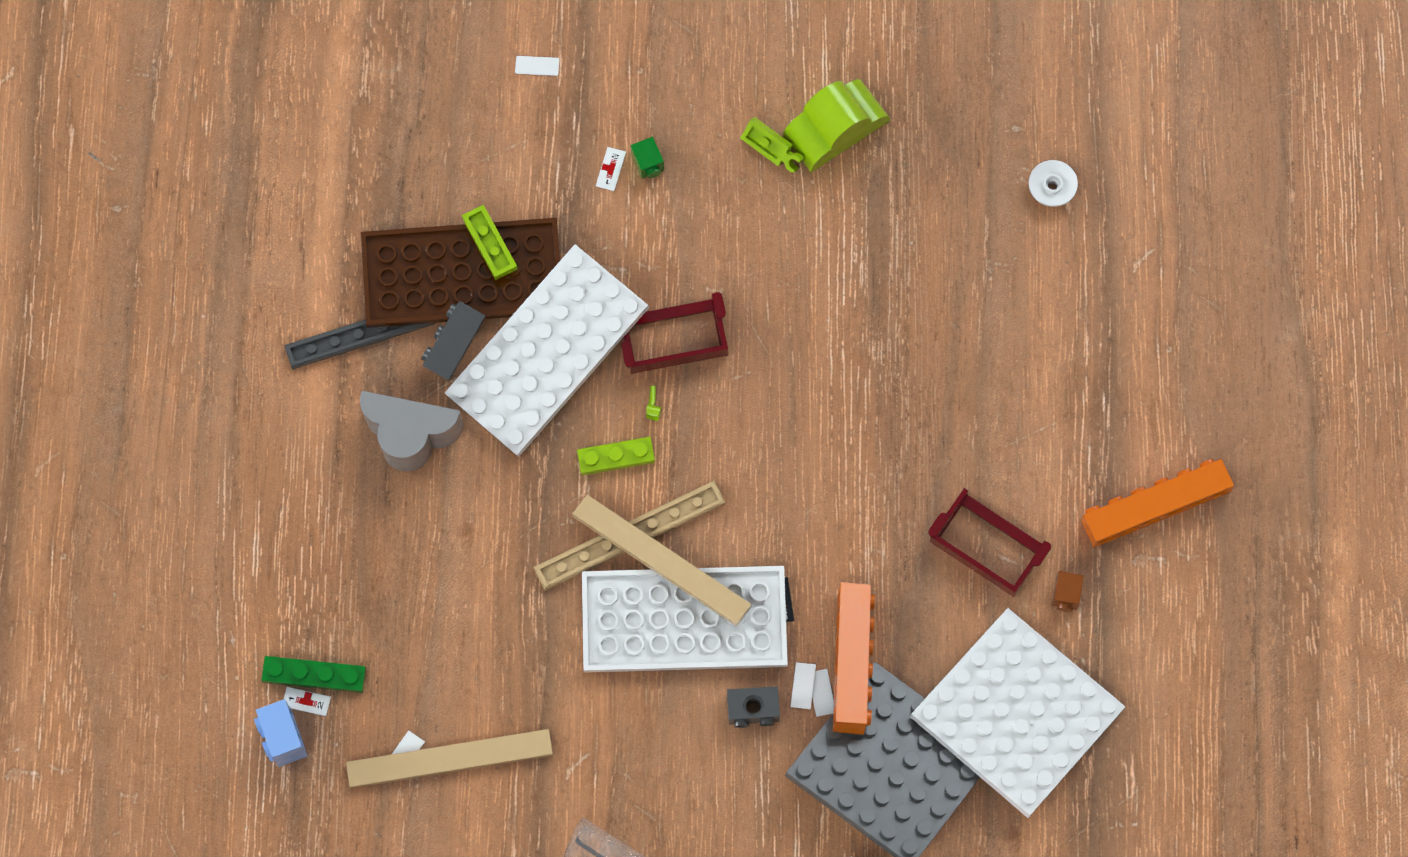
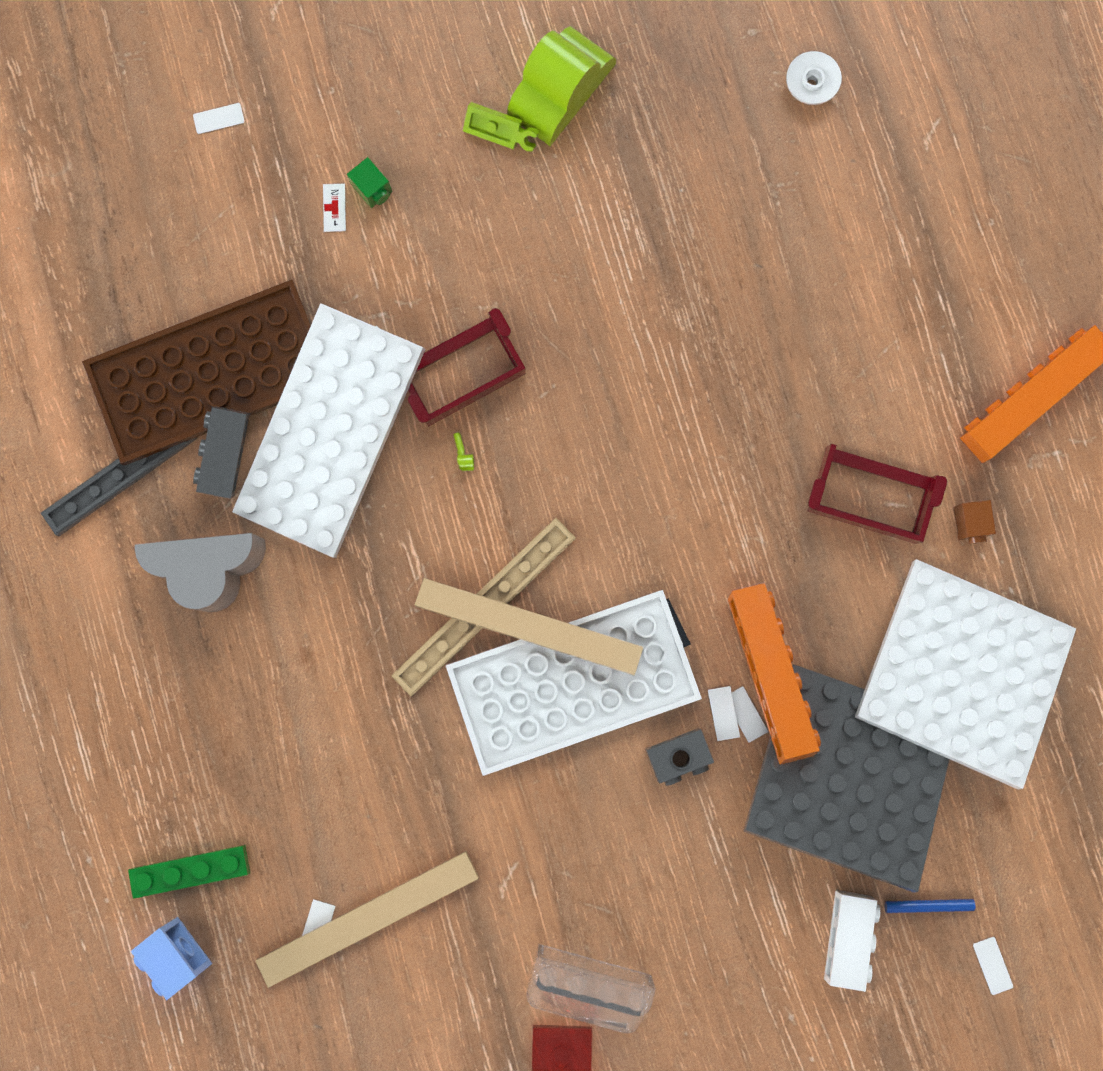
camera: 15 degrees left, 10 degrees up
(307, 701) = (191, 902): white sticker -> none
(489, 242) = (226, 329): lime plate -> none
(615, 456) = (440, 523): lime plate -> none

